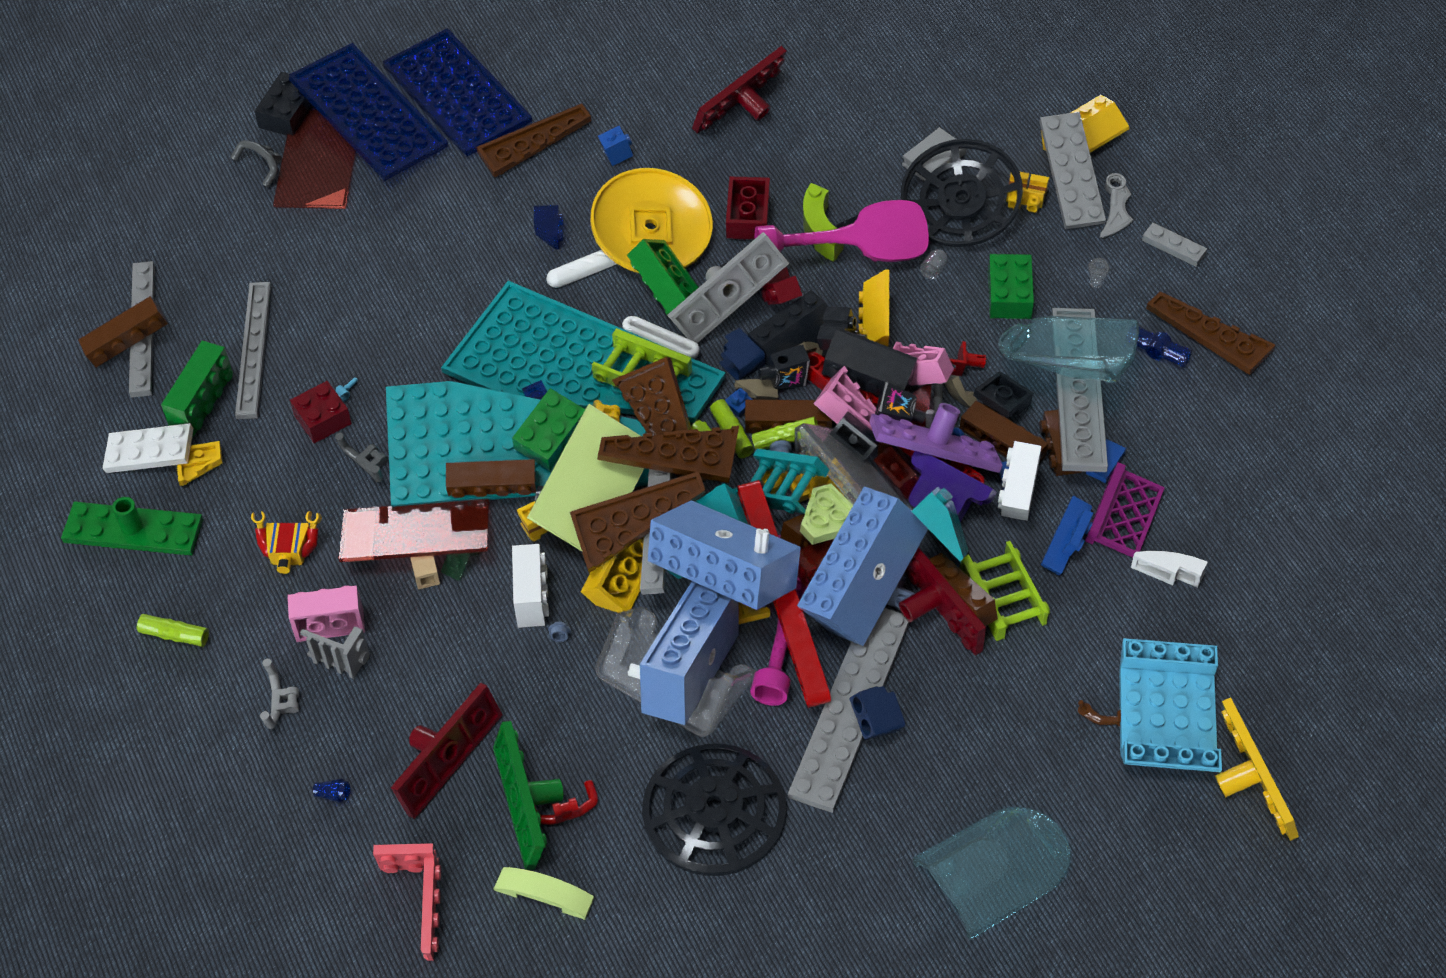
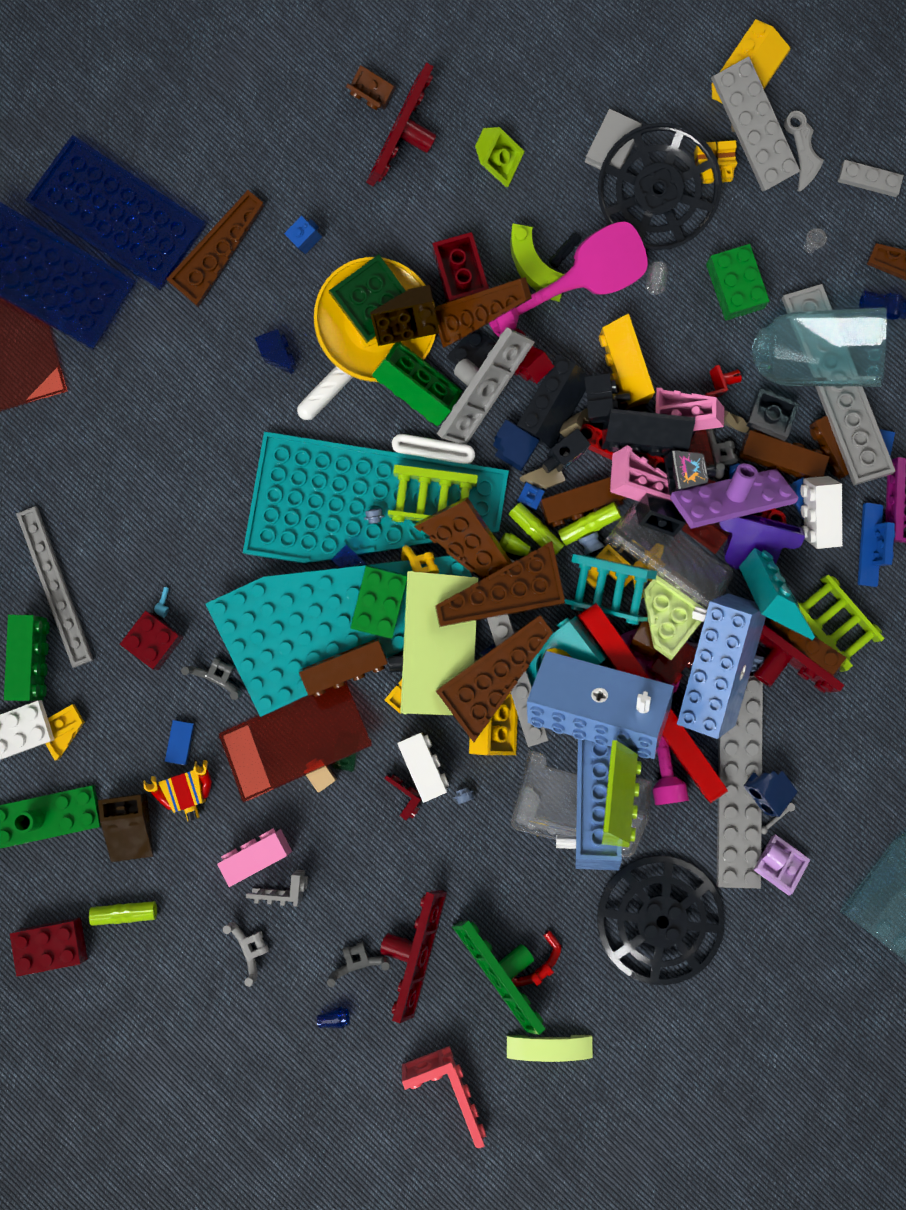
camera: 20 degrees left, 30 degrees up
(86, 634) = (48, 946): none -> dark red brick
(216, 554) = (126, 827): none -> dark brown slope
(305, 501) = (179, 742): none -> blue tile
(380, 750) = (353, 965): none -> dark grey piece
(503, 621) = (411, 808): none -> dark red bracket
(579, 368) = (374, 515): none -> sand blue plate
(654, 199) = (364, 292): none -> dark green plate
(677, 218) = (405, 317): none -> dark brown slope
(703, 612) = (620, 796): none -> lime slope
(728, 61) = (372, 88): none -> reddish brown bracket
(744, 226) = (474, 311): none -> reddish brown wing
(823, 135) = (498, 154): none -> lime slope
(862, 788) = (782, 864): none -> lavender plate
(895, 747) = (764, 829): none -> light grey hinge

